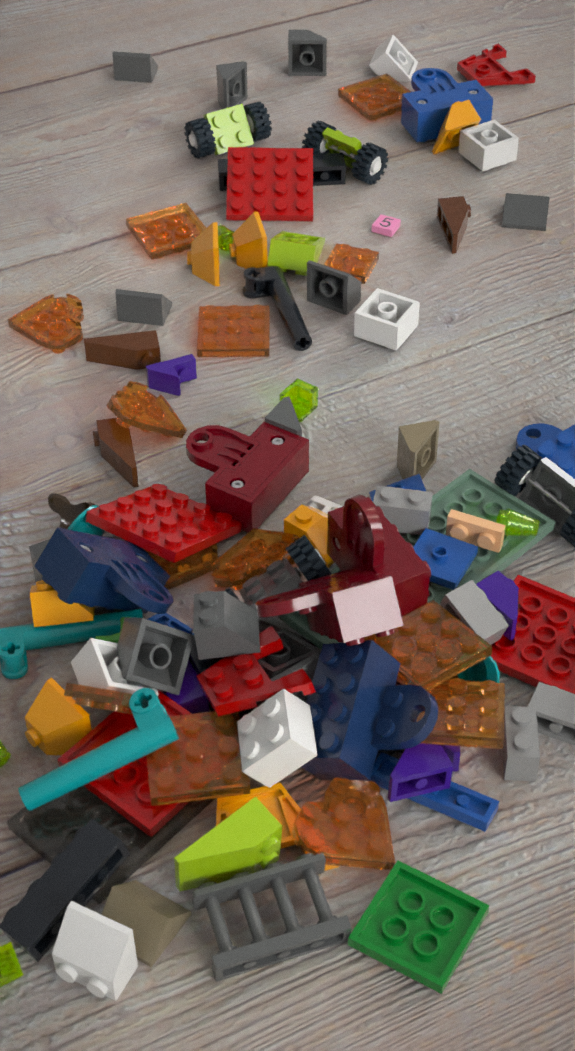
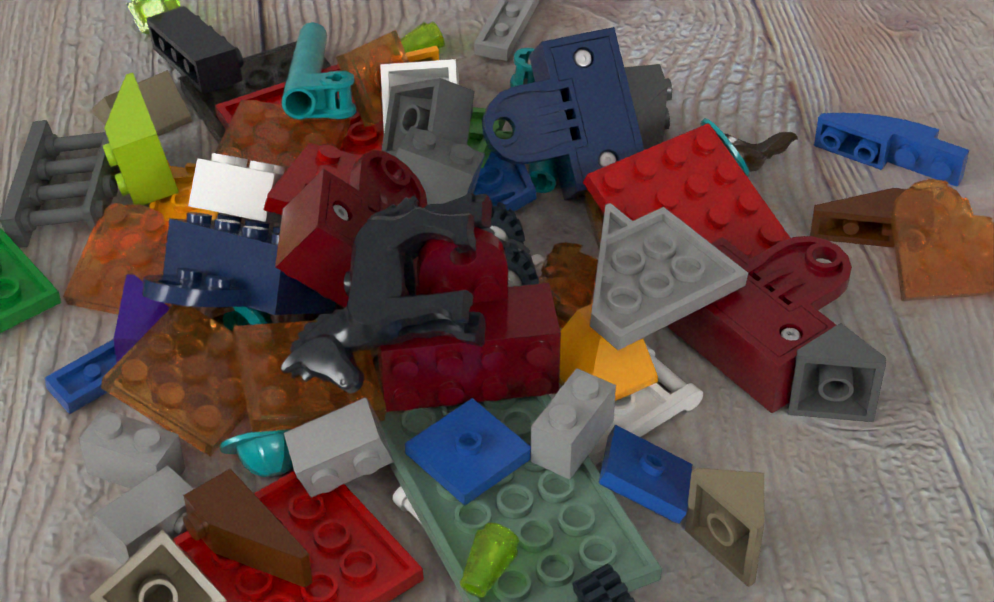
camera: 110 degrees right, 0 degrees up
(37, 452) = (893, 140): none -> blue slope
(94, 952) = (106, 61): white slope -> none
(269, 492) = (655, 275): none -> light grey wing
(303, 398) = (944, 441): clear neon green panel -> none
(402, 553) = (384, 295): none -> black animal
(475, 530) = (494, 497): light nougat plate -> none
(504, 597) = (356, 500): dark purple slope -> none
(551, 651) = (243, 529): none -> reddish brown slope

